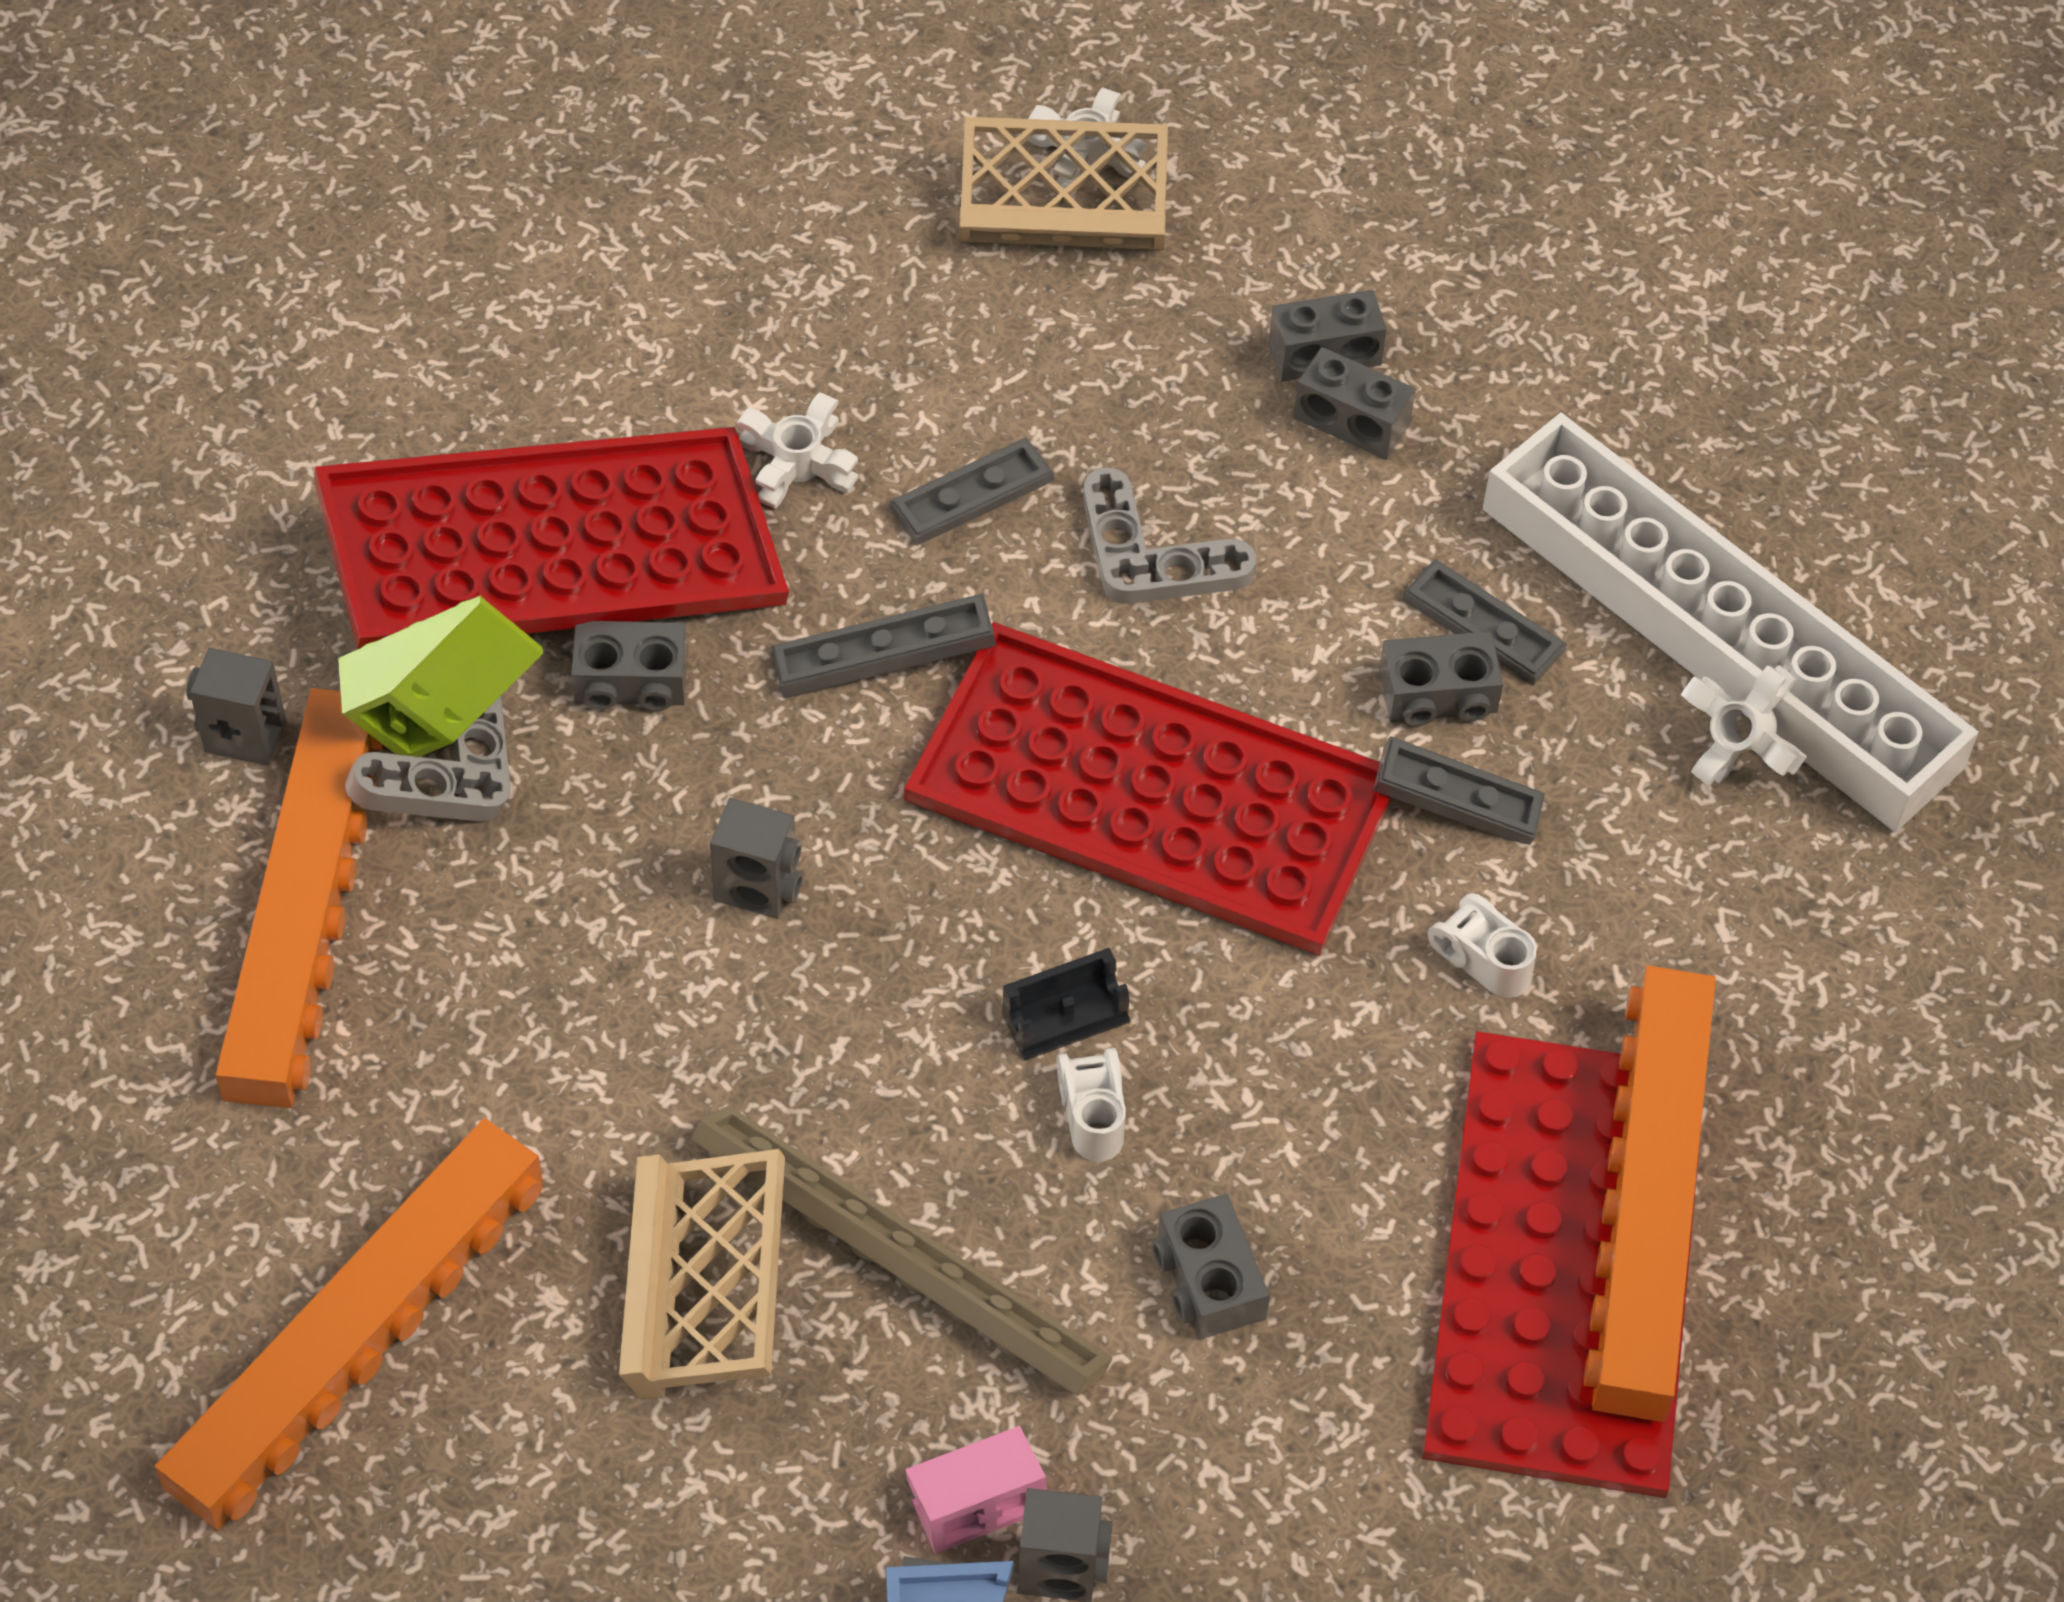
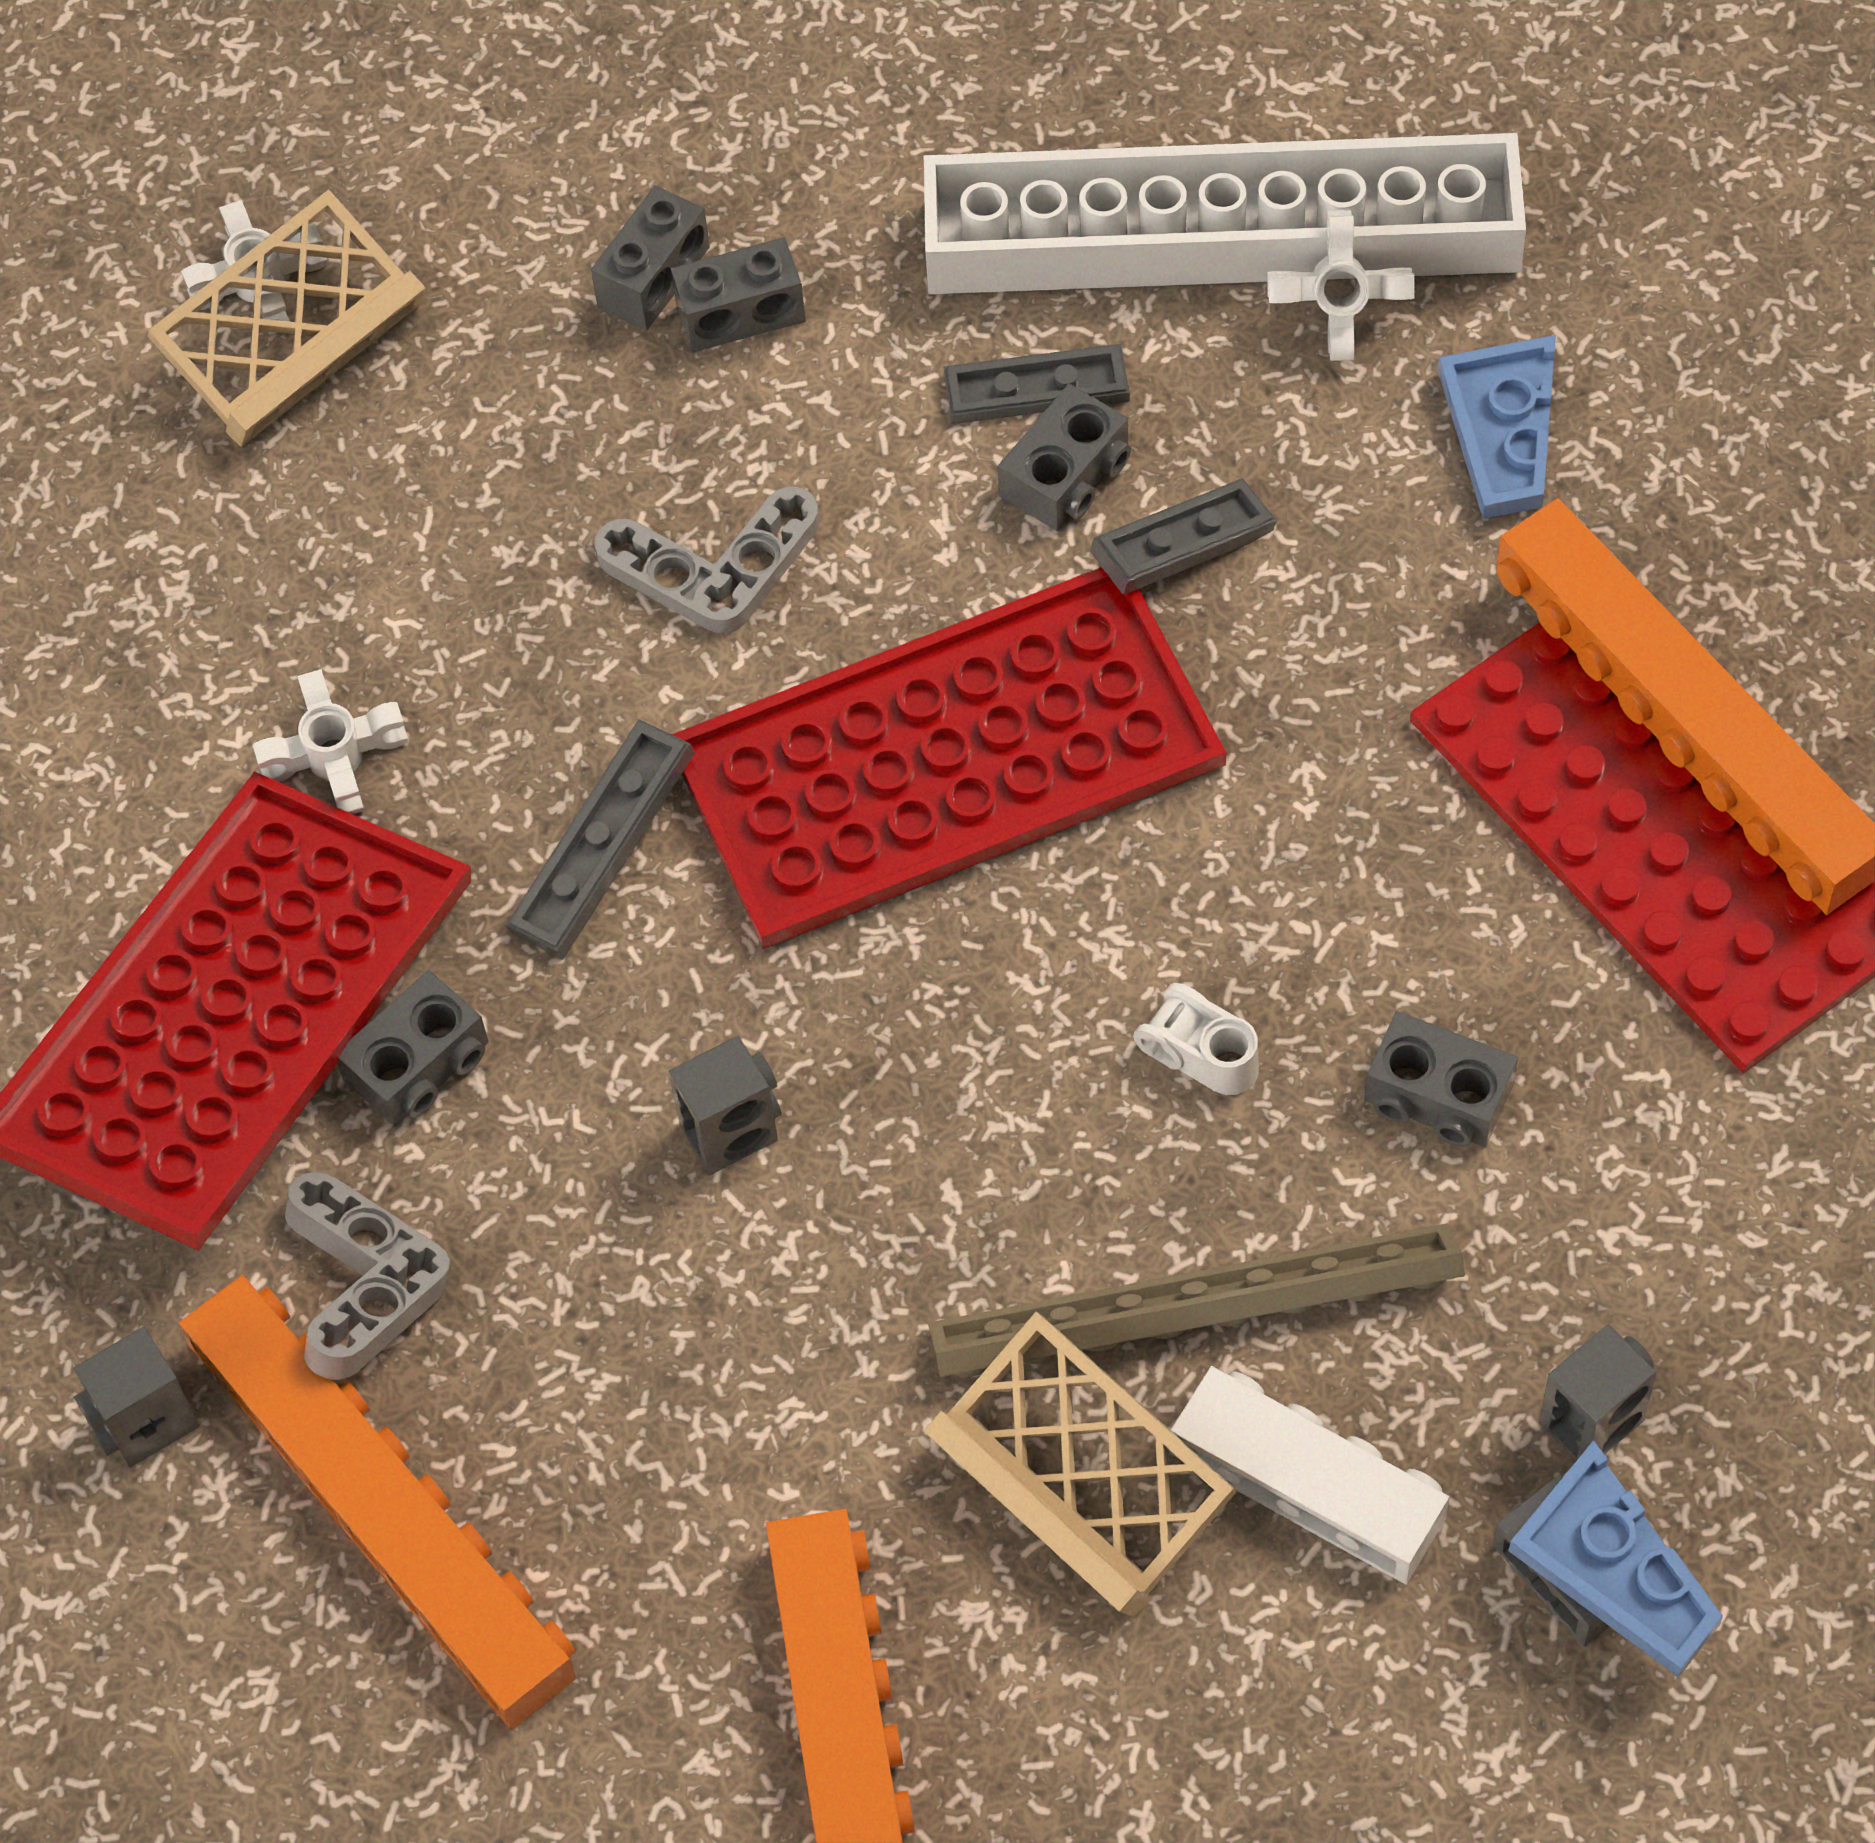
camera: 40 degrees left, 5 degrees up
(434, 676) = (293, 1209): lime slope -> none
(838, 1417) = (1313, 1474): none -> white brick
(971, 491) = (509, 647): dark grey tile -> none
(975, 1488) = (1474, 1420): bright pink hinge -> none
(1065, 1004) = (1092, 988): black hinge -> none
(1481, 939) = (1341, 637): white piece -> none
(1764, 910) = (1502, 420): none -> medium blue wing

